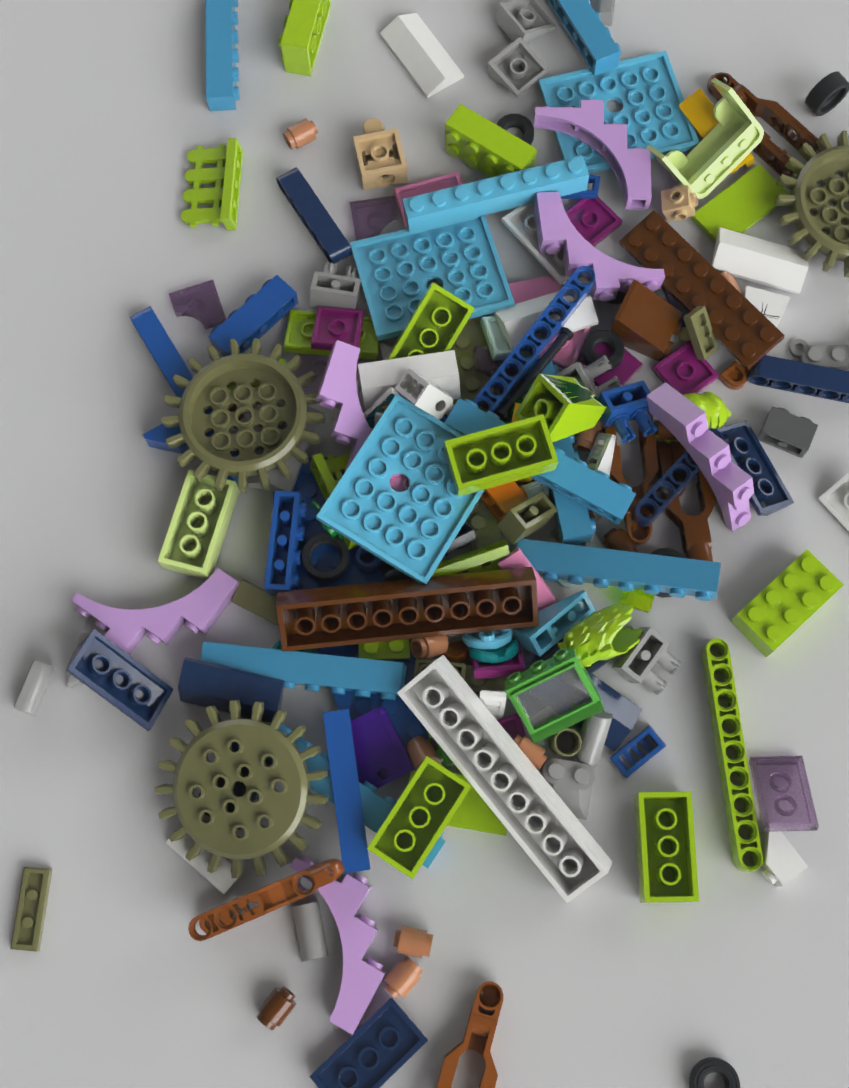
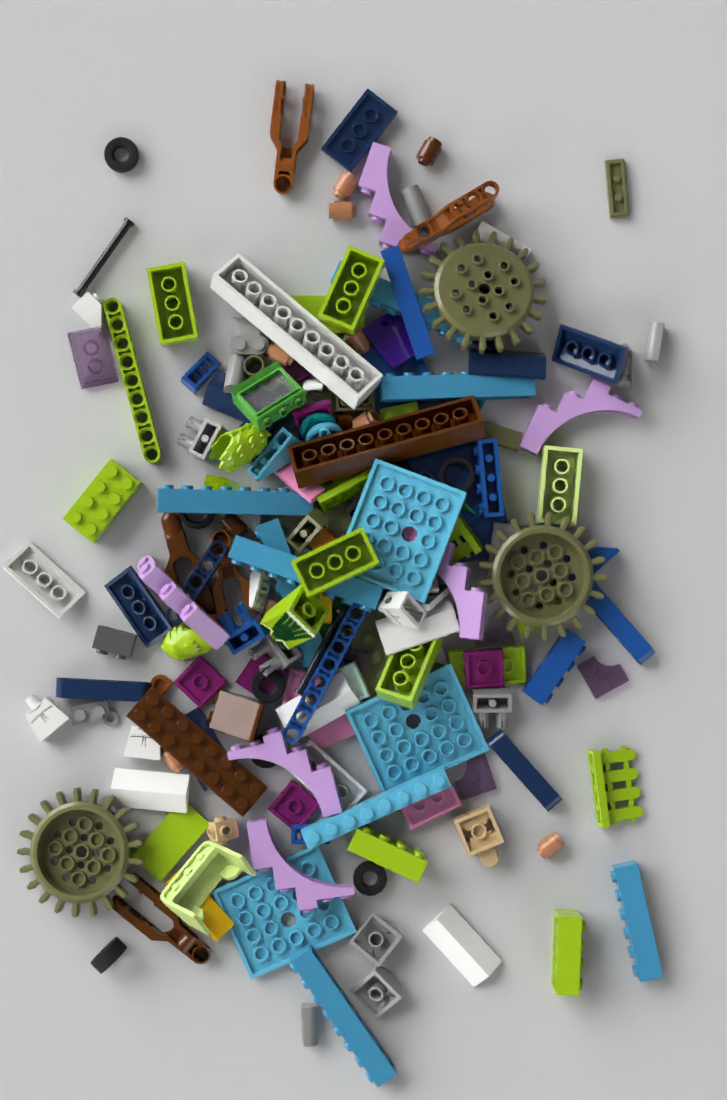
camera: 170 degrees right, 15 degrees up
(699, 332) = (192, 710): olive tile -> none
(756, 931) = (104, 257): none -> black bar

